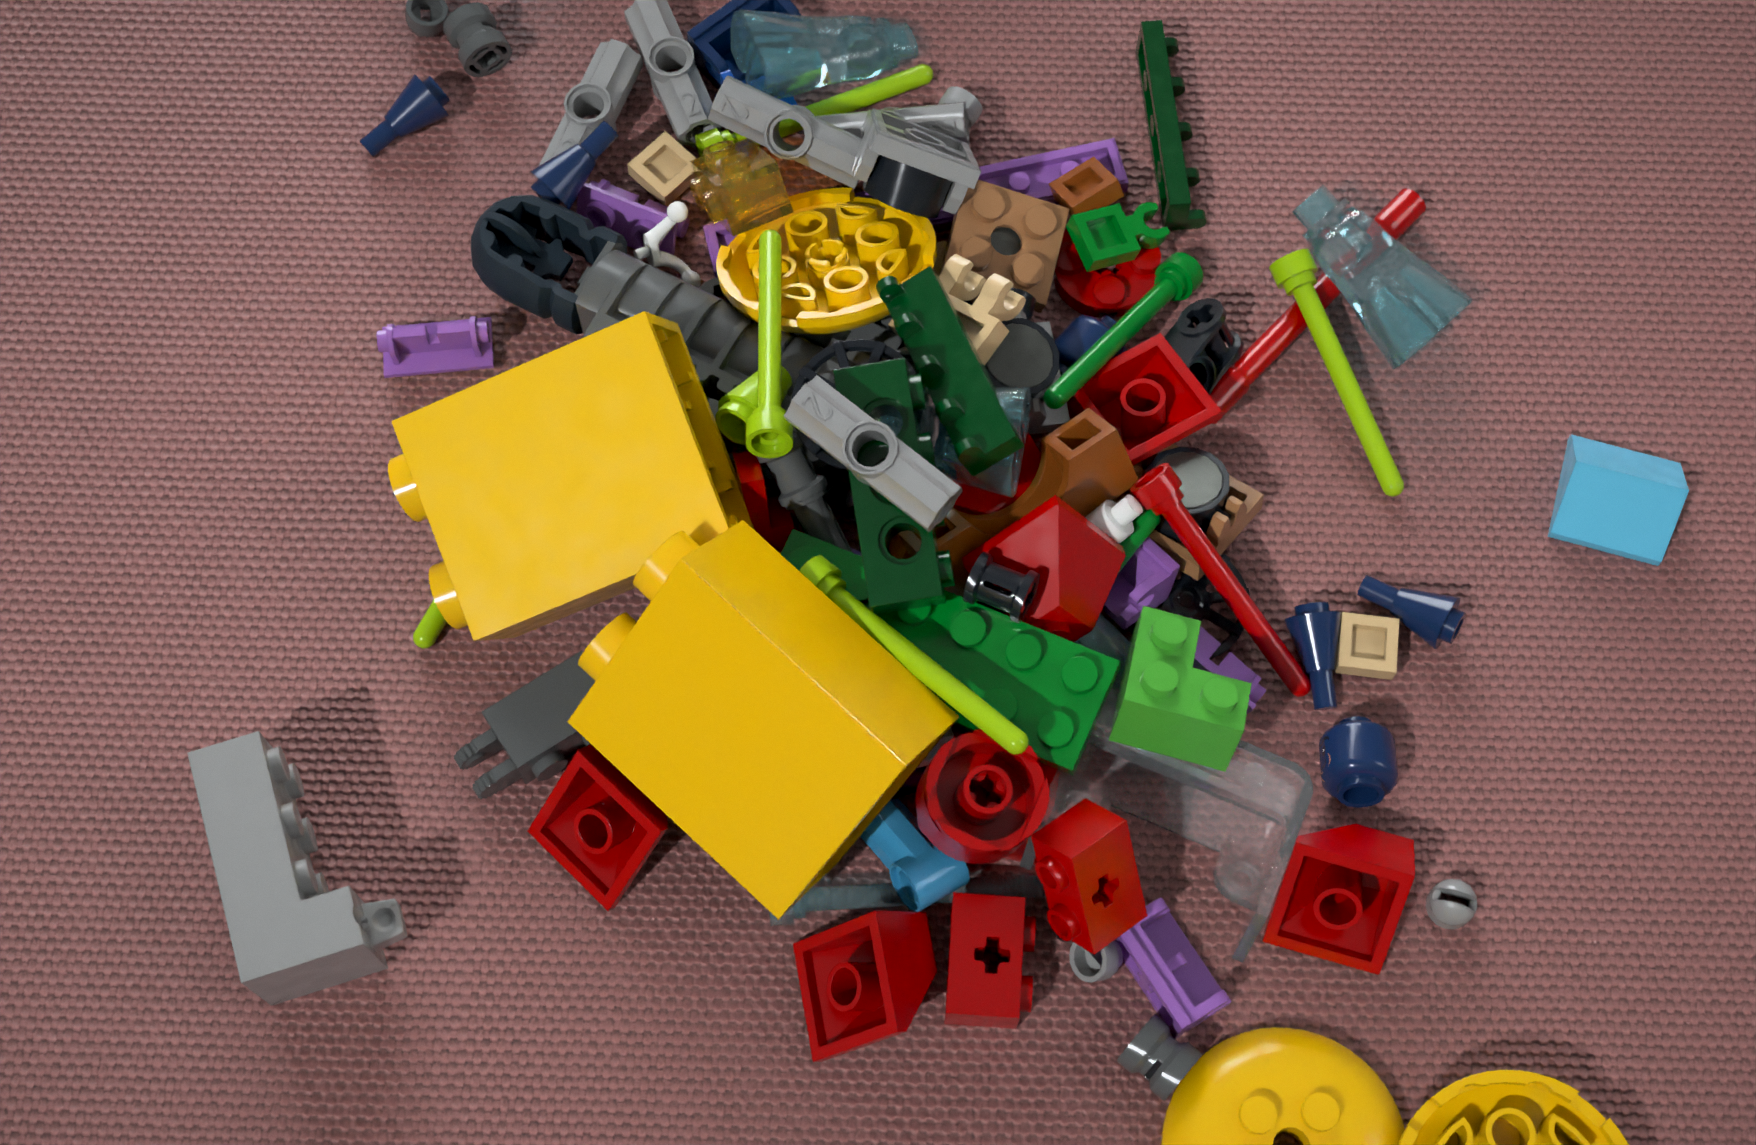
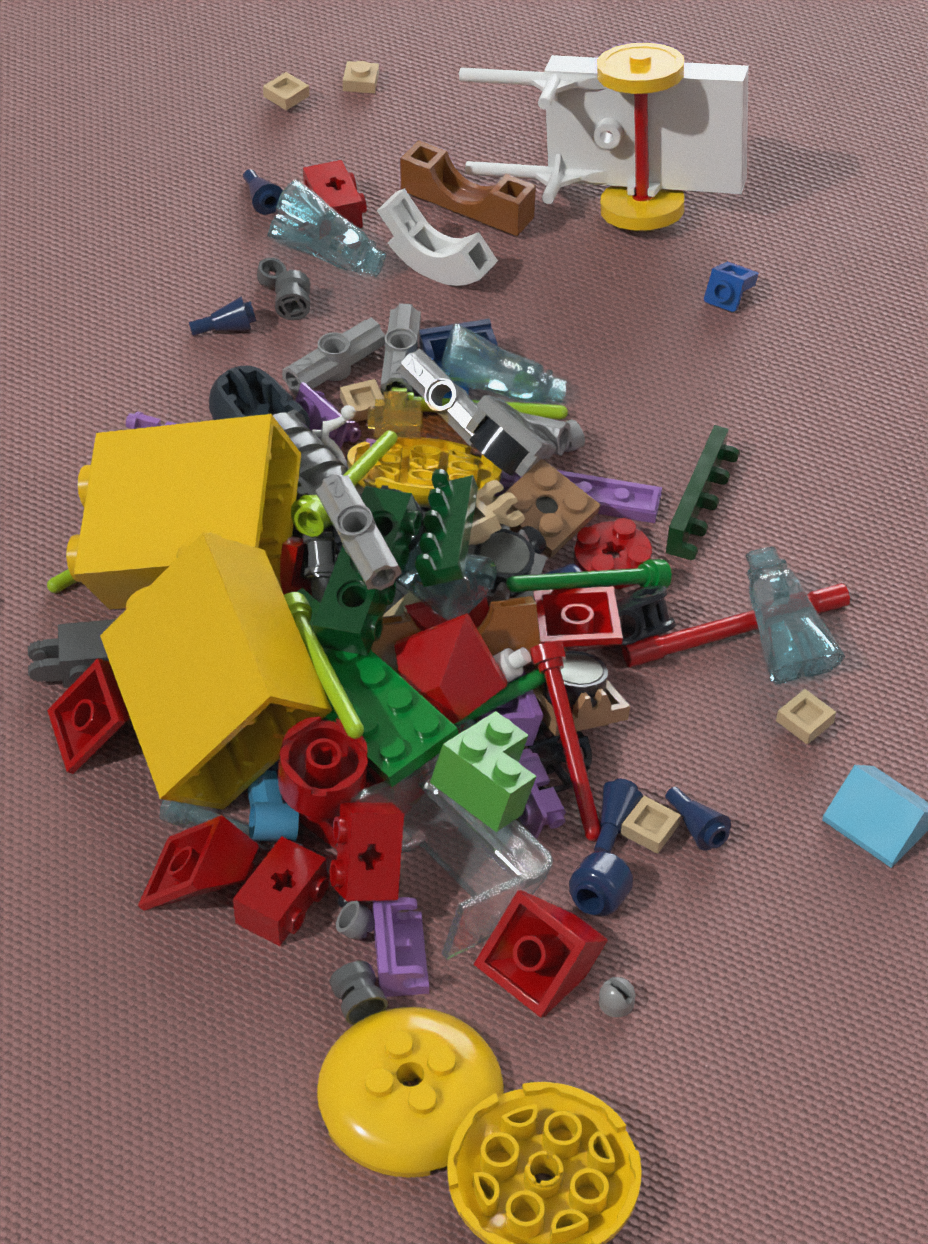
camera: 25 degrees right, 20 degrees down
(566, 173) = (296, 370): dark blue cone -> none
(980, 587) = (413, 655): black bush -> none
(1086, 187) = (620, 502): dark orange plate -> none
(1111, 238) = (618, 529): green plate -> none
(1297, 276) = (730, 596): lime piece -> none
(1463, 403) = (806, 716): none -> tan plate

